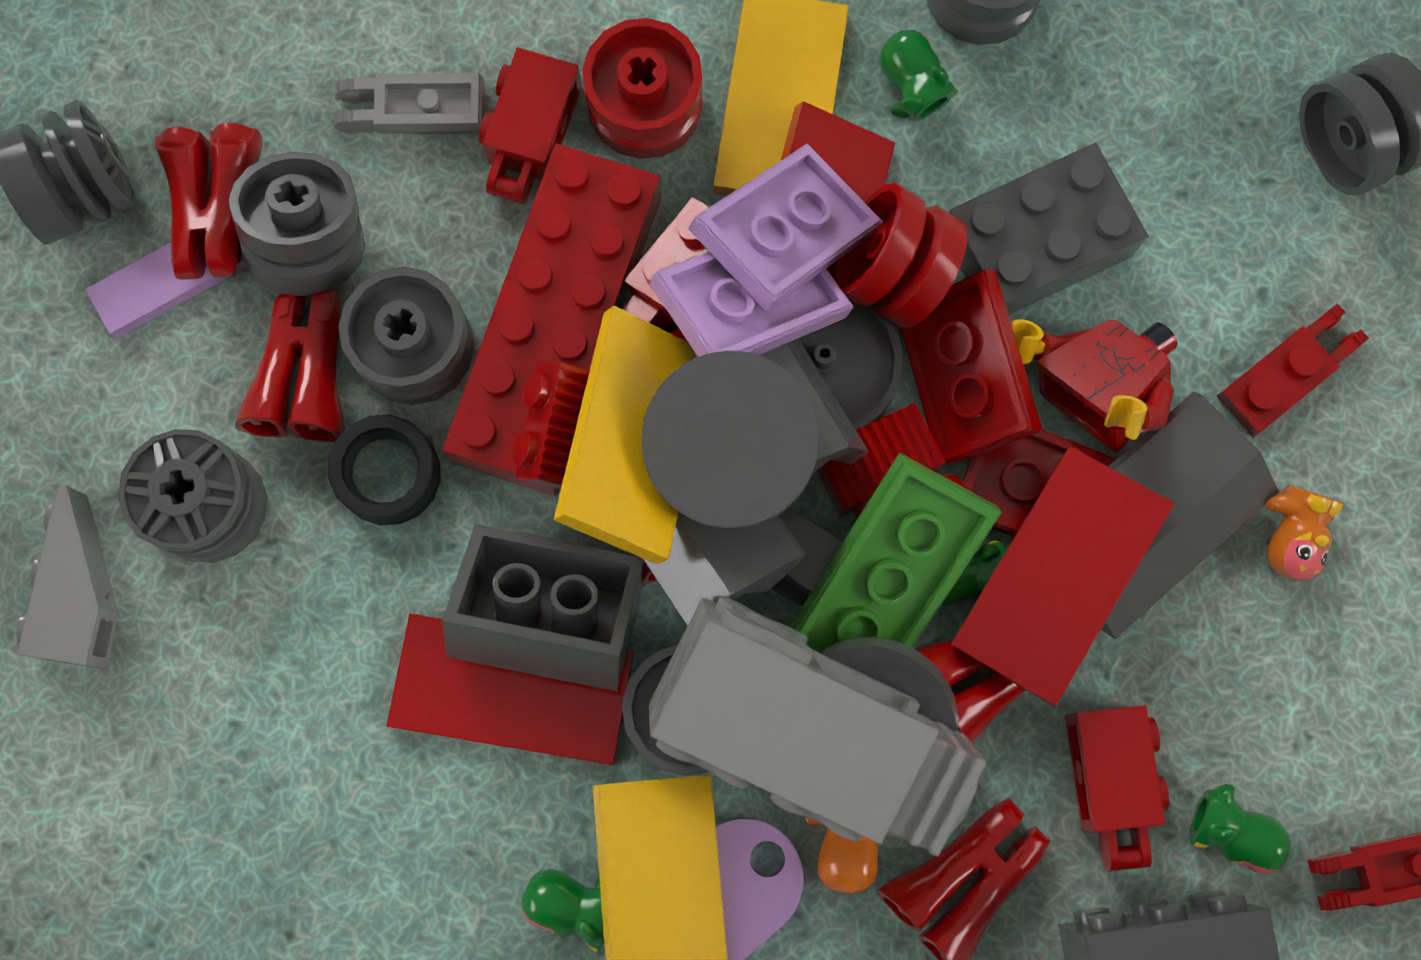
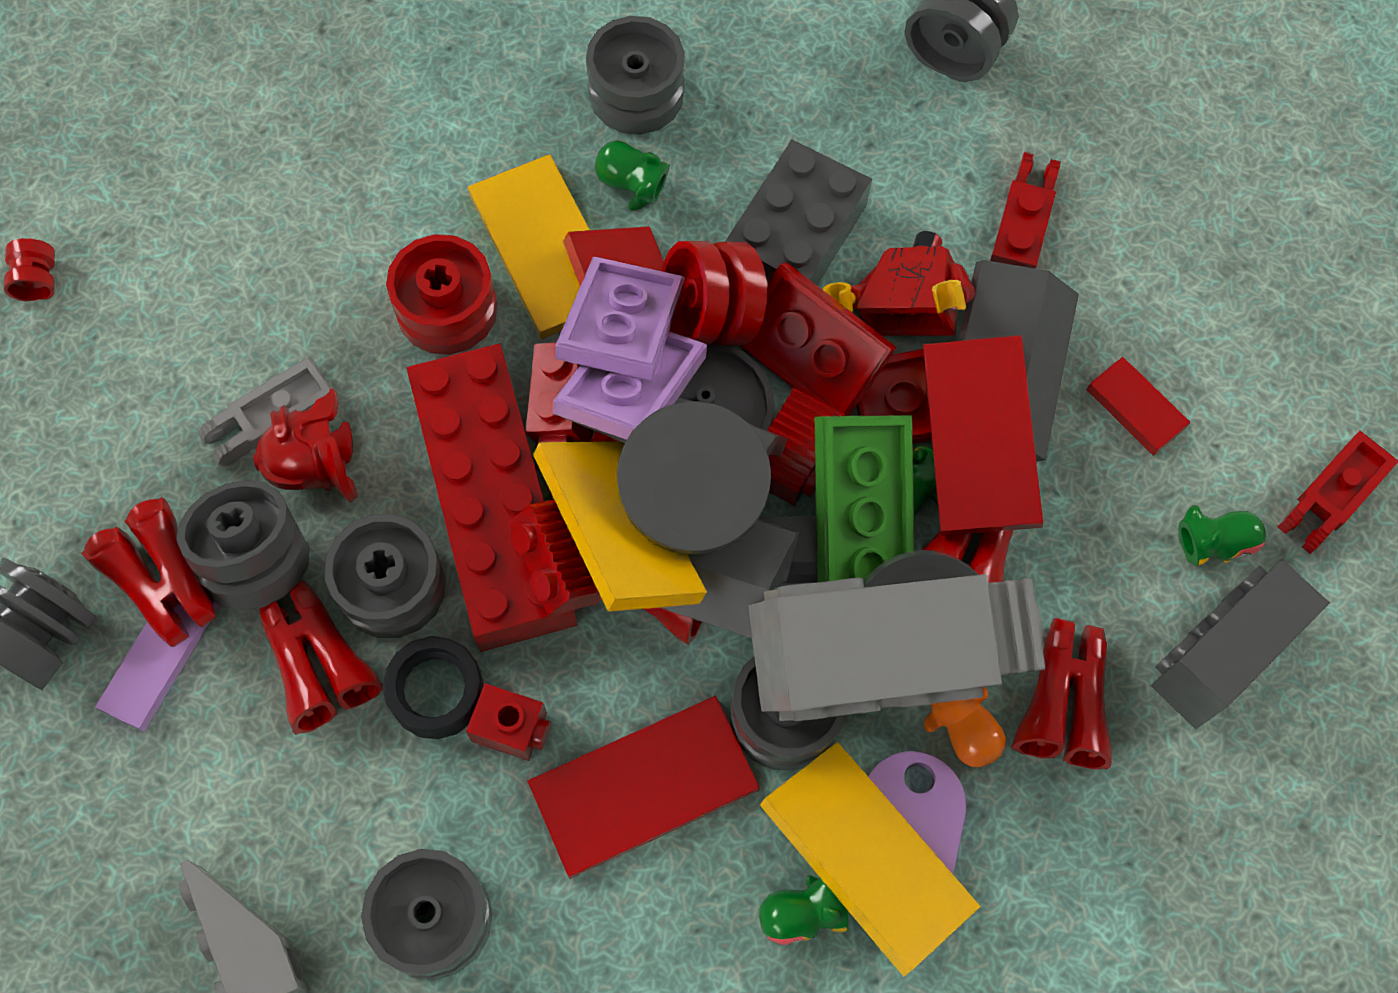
camera: 35 degrees left, 10 degrees down
(202, 668) = (403, 893): none -> dark grey wheel
(215, 517) = (319, 822): dark grey wheel -> none
(402, 168) = (303, 453): none -> red helmet
(425, 548) = (509, 722): none -> red brick
(529, 118) = (369, 369): red brick -> none
(544, 607) = (633, 700): dark grey brick -> none
(1118, 780) = (1117, 556): red brick -> none
(1257, 644) = (1138, 406): none -> red tile
(1302, 538) = (1115, 315): orange animal -> none

